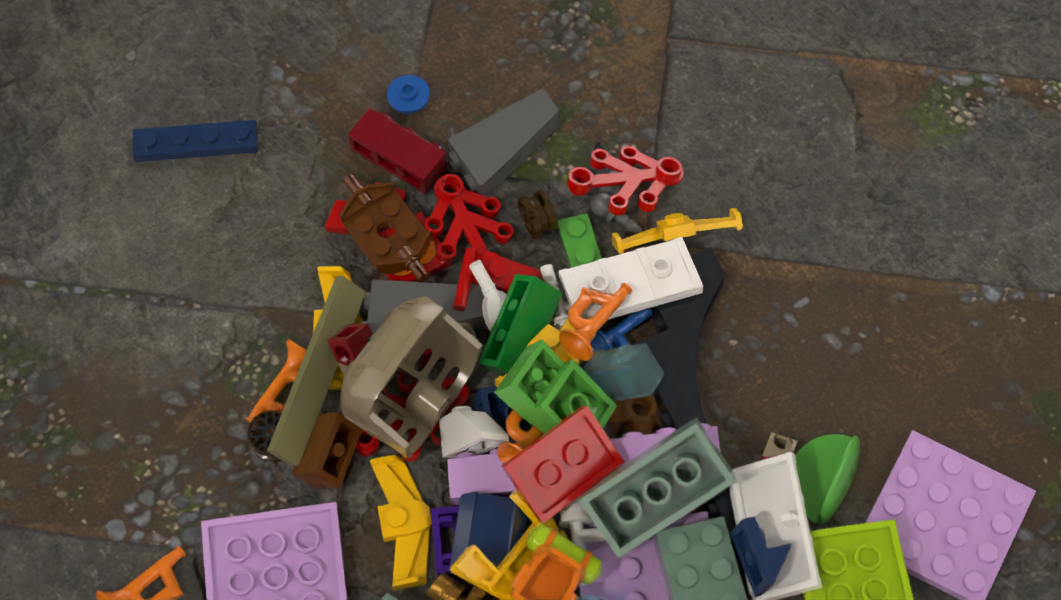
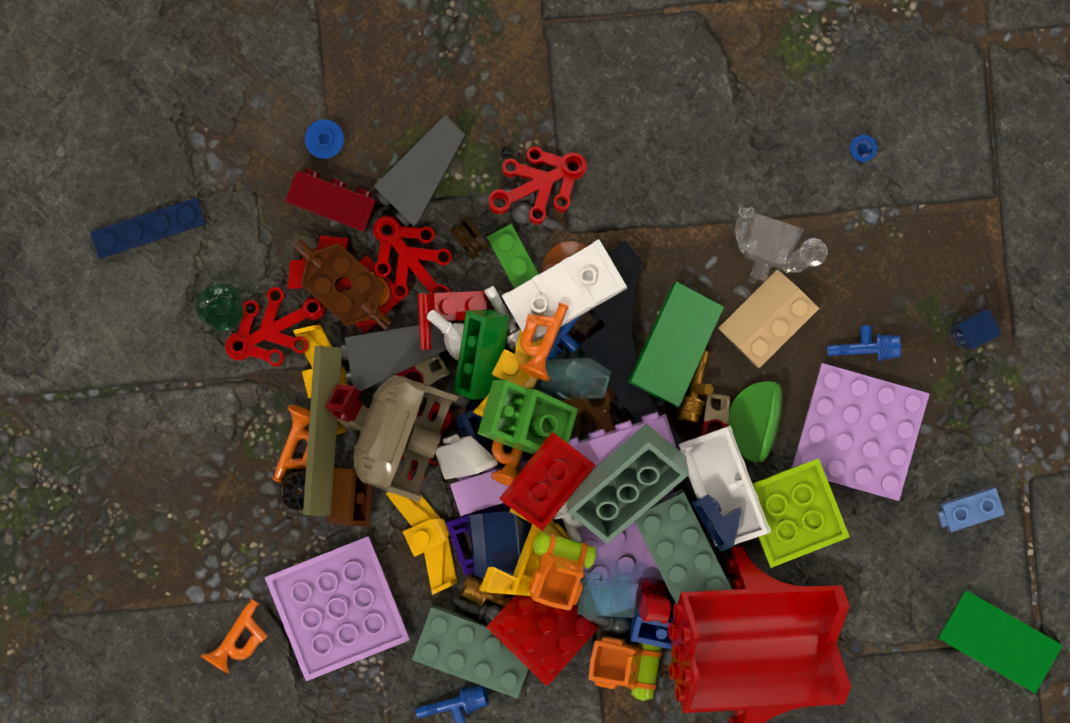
camera: 20 degrees left, 25 degrees up
(245, 223) = (220, 306): none -> clear green hair
(295, 263) = (271, 330): none -> red plant
(677, 226) = (591, 227): yellow plate -> none
(745, 369) = (676, 344): none -> green tile
(750, 439) = (691, 405): none -> pearl gold piece
(859, 370) = (768, 318): none -> tan slope
(876, 290) = (772, 243): none -> clear torso
(991, 426) = (886, 346): none -> blue piece
(993, 219) = (863, 148): none -> blue tile

